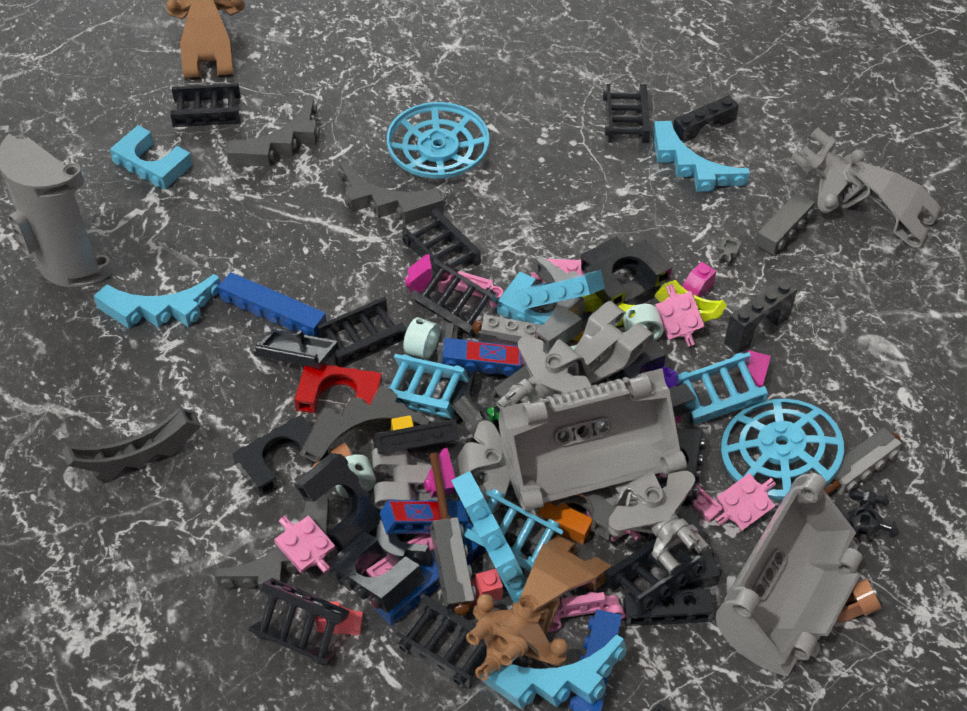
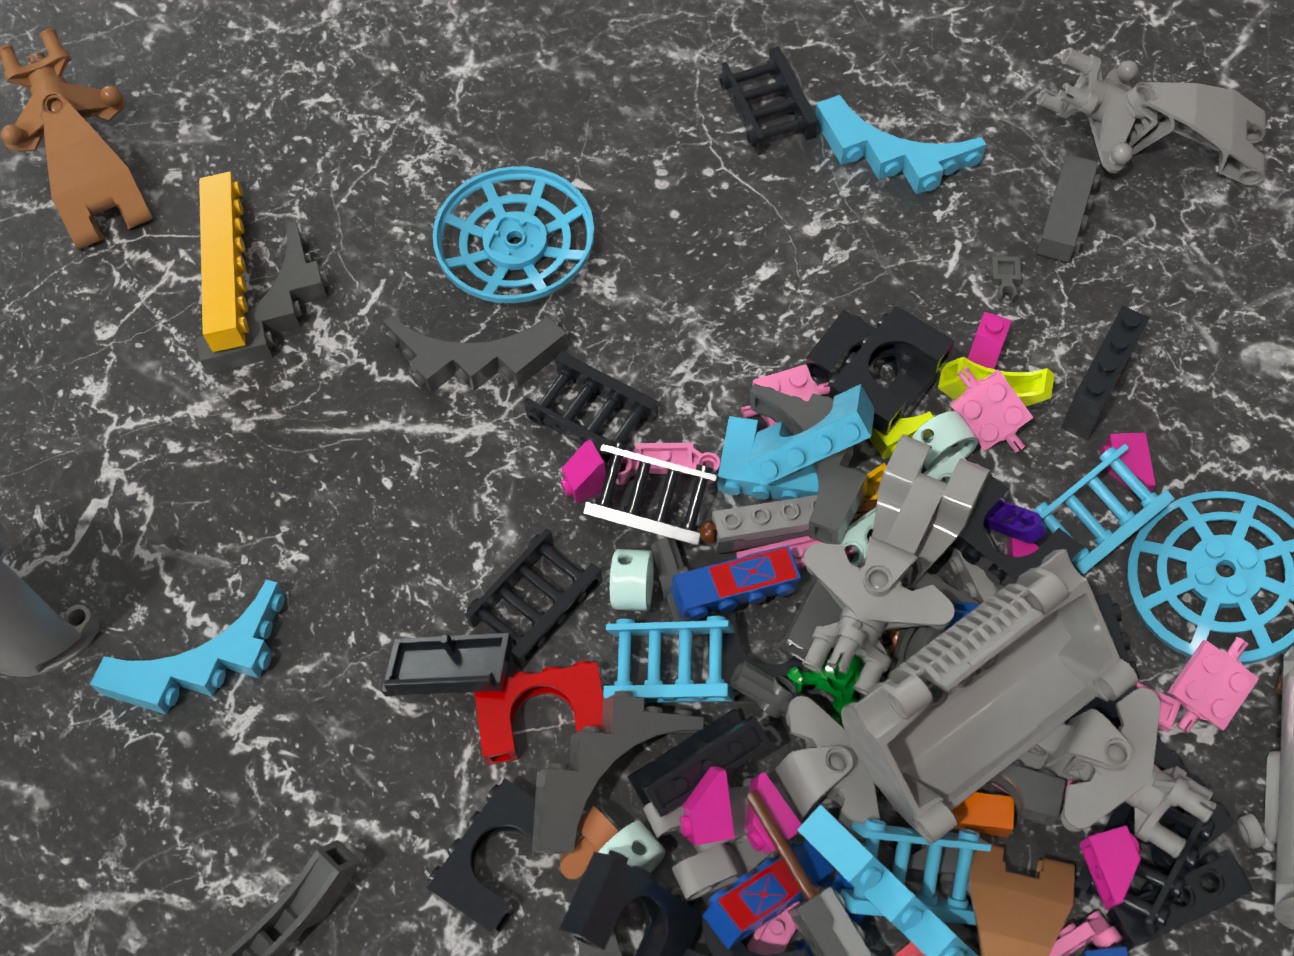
camera: 15 degrees left, 10 degrees up
(159, 172) = (108, 426): medium azure arch -> none
(205, 116) = (140, 306): black fence -> none
(261, 105) = (222, 262): none -> yellow brick
(271, 305) = (377, 600): blue brick -> none
(401, 422) = (670, 748): yellow slope -> none
(405, 458) = (708, 810): none -> dark pink slope
(631, 562) = (1112, 863): none -> dark pink slope
(691, 123) = (898, 57): black arch -> none

